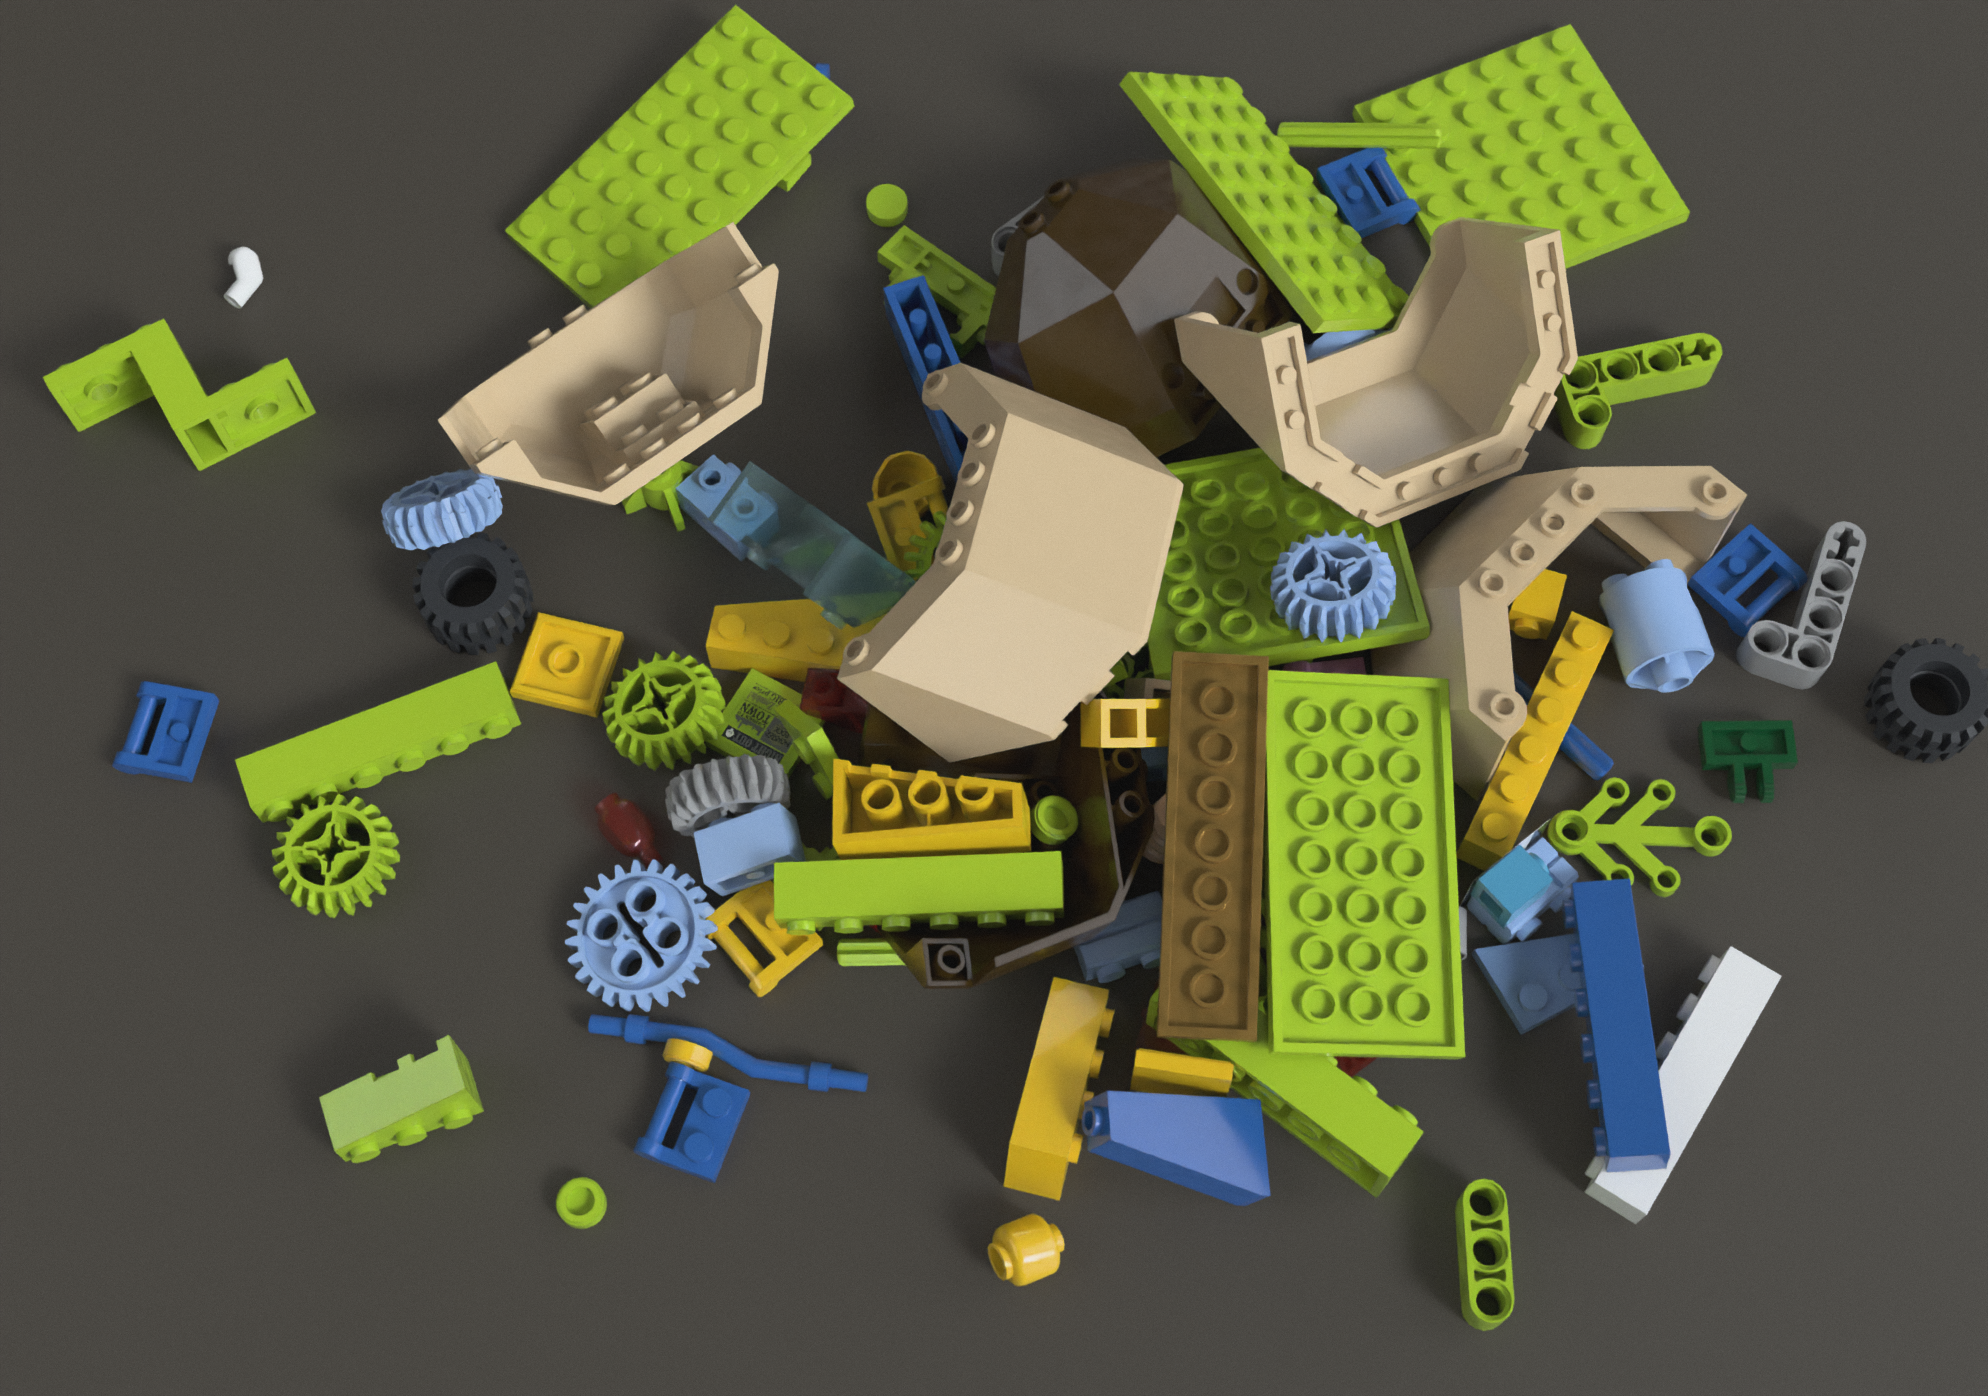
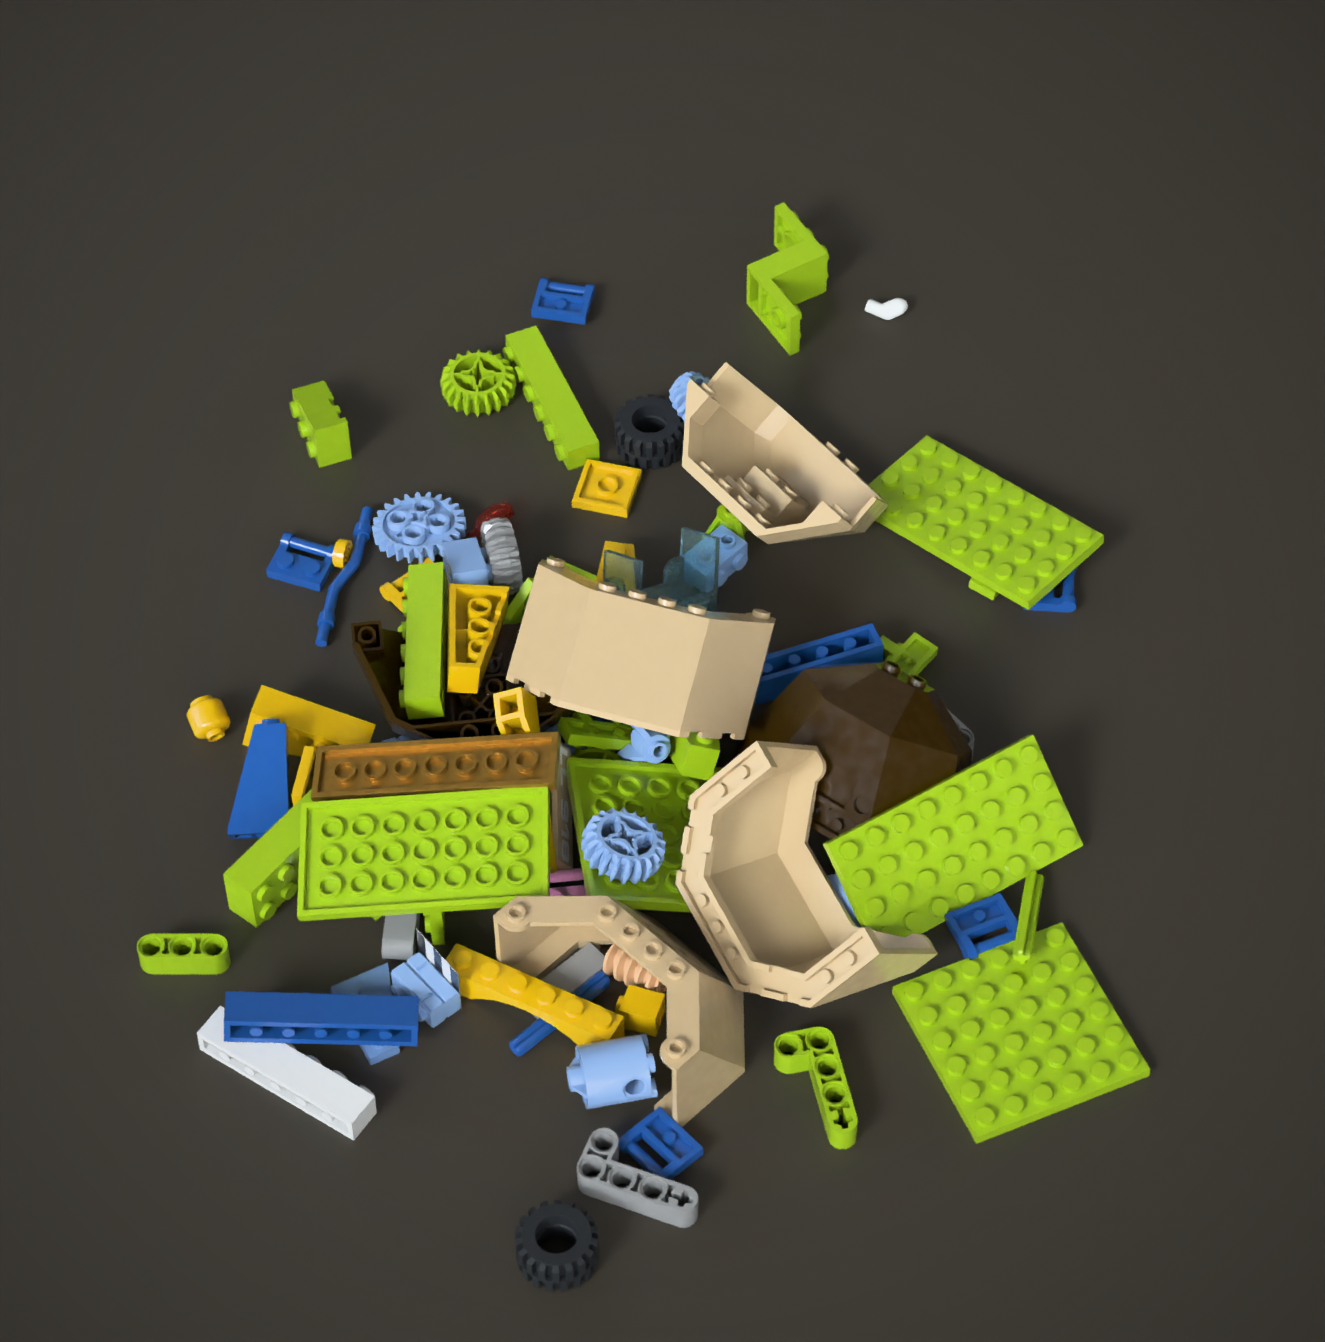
camera: 90 degrees right, 15 degrees down
(581, 1203) = (259, 513): lime tile -> none
(636, 716) = (567, 529): lime gear -> none
(887, 205) = (960, 643): lime tile -> none
(1053, 820) = (475, 710): lime tile -> none
(1512, 885) = (414, 956): dark azure brick -> none
(1630, 836) = (465, 1061): lime plant -> none
(1748, 746) = (528, 1135): dark green hinge -> none

